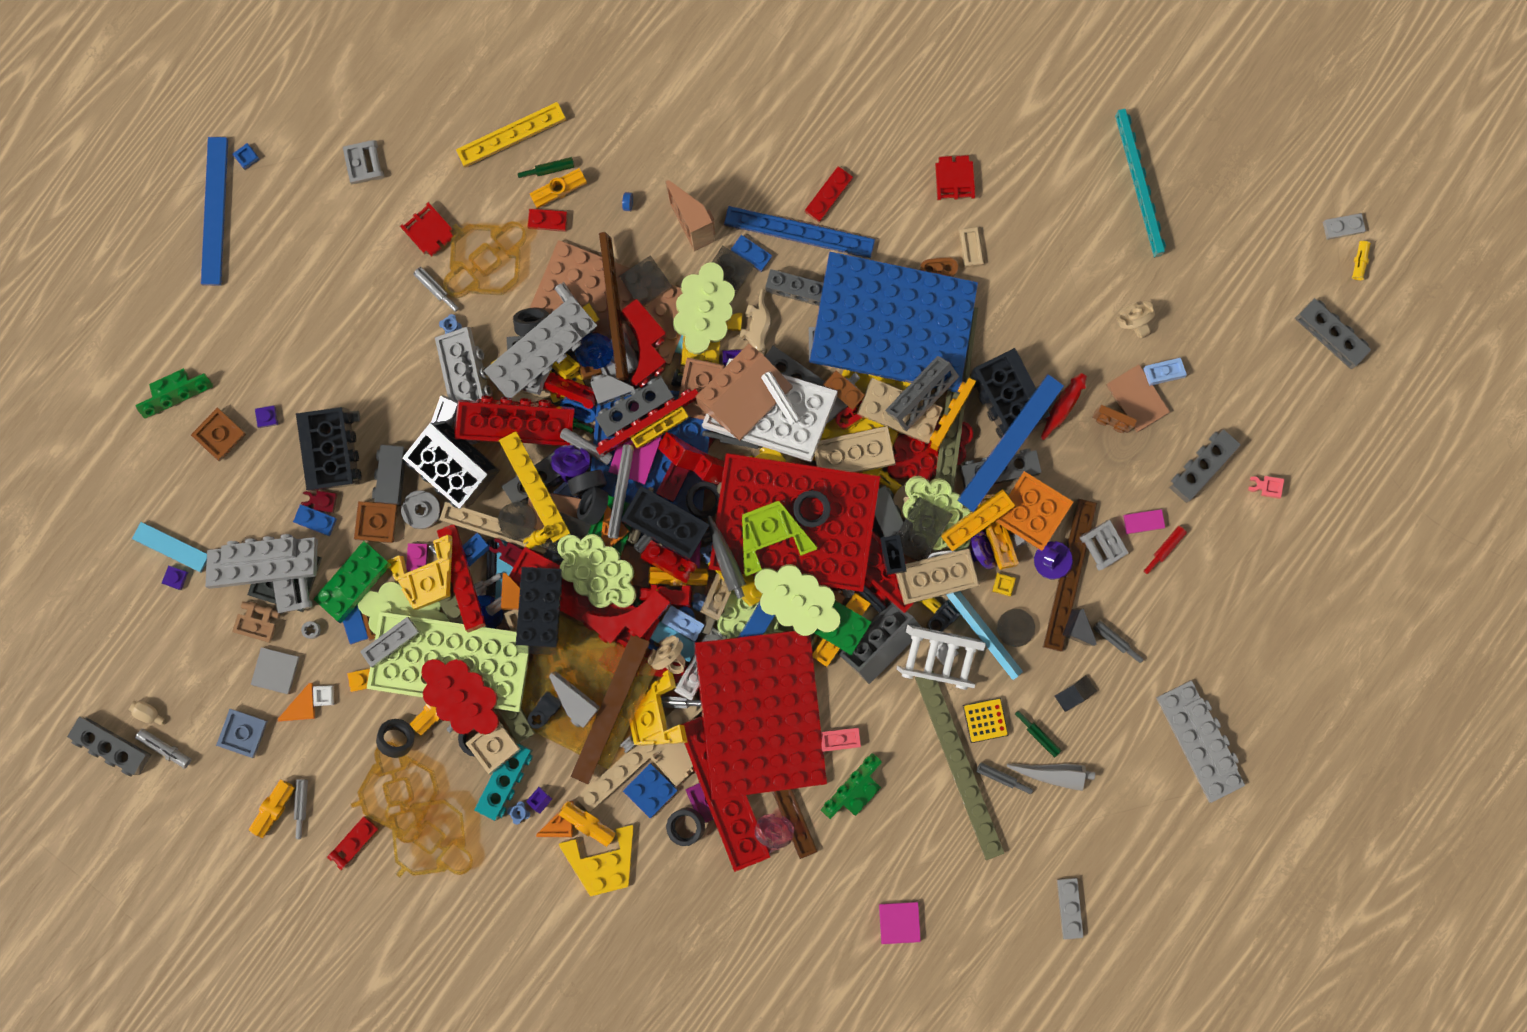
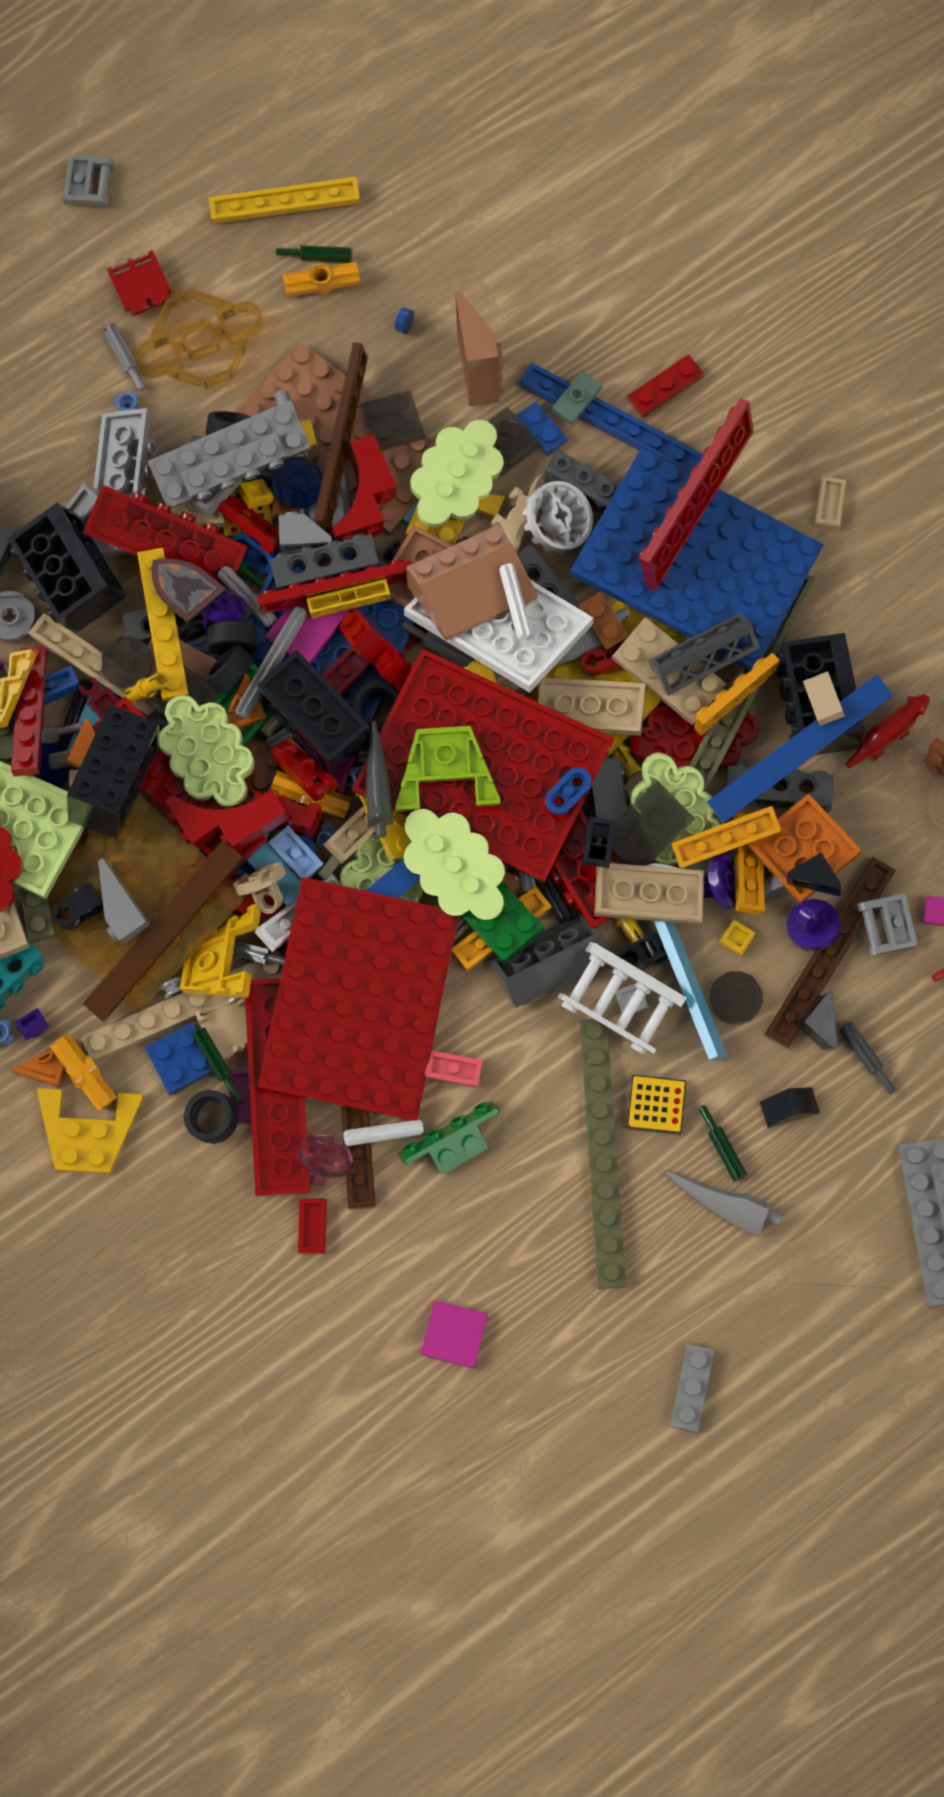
camera: 20 degrees right, 10 degrees down
(542, 457) = (185, 587): none -> shield
(547, 220) = (295, 315): red plate -> none
(676, 787) = (216, 1061): none -> dark green axle
(769, 224) = (576, 398): none -> sand green plate
(779, 879) = (312, 1226): none -> red tile
(790, 316) = (565, 516): none -> white gear
(806, 800) = (383, 1132): none -> white axle
(826, 508) = (510, 729): black tyre -> none
(861, 525) = (567, 791): none -> blue plate
(880, 283) = (697, 494): none -> red plate
(938, 266) = (783, 511): dark orange plate -> none
(954, 177) = (835, 411): red plate -> none
(1002, 777) = (654, 1186): dark grey axle -> none
(1016, 403) = (823, 698): none -> tan tile
(1049, 530) = (816, 876): none -> black slope

